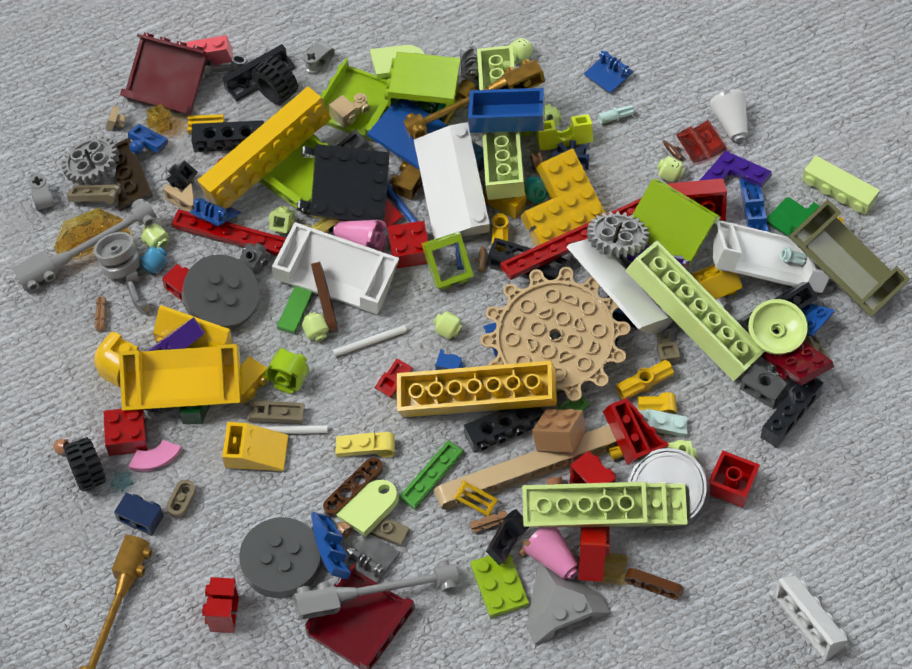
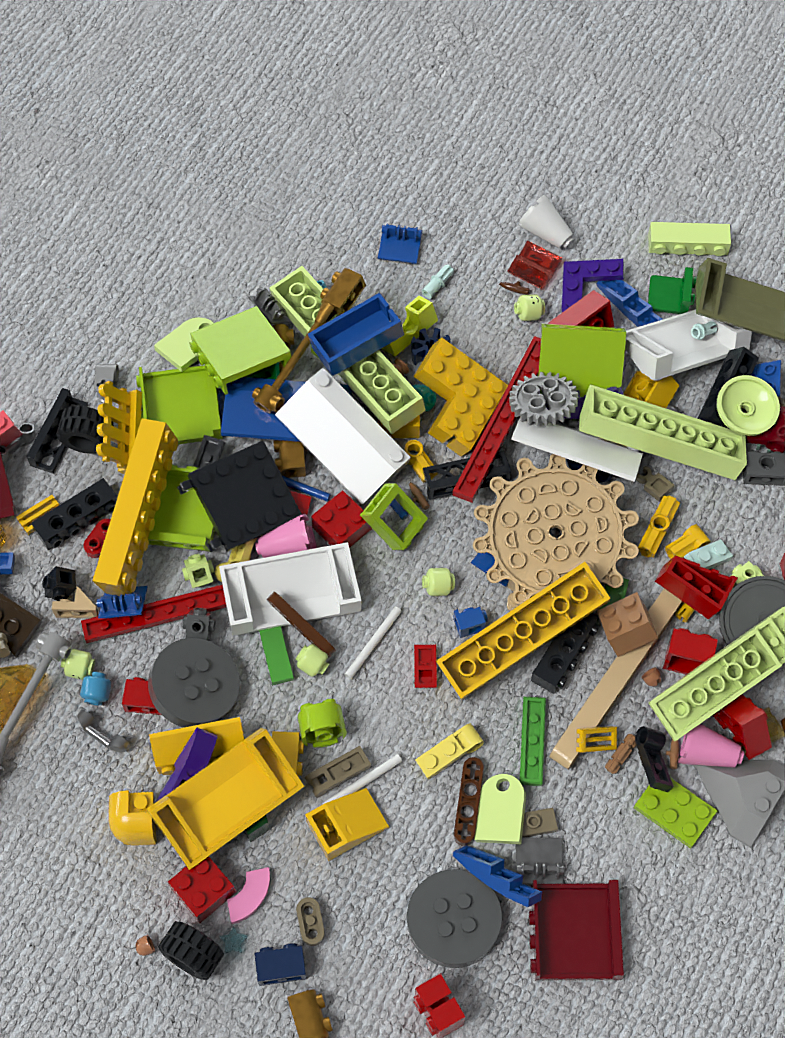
camera: 35 degrees left, 5 degrees up
(100, 314) = (80, 779): medium nougat axle -> none
(117, 255) = (56, 707): light grey wheel -> none
(317, 81) = (128, 420): none -> yellow fence
(327, 599) = (541, 932): light grey bar -> none
(345, 529) = (493, 848): medium nougat hinge -> none
(347, 112) = (181, 420): tan brick -> none
(522, 50) = (304, 260): yellowish green head -> none

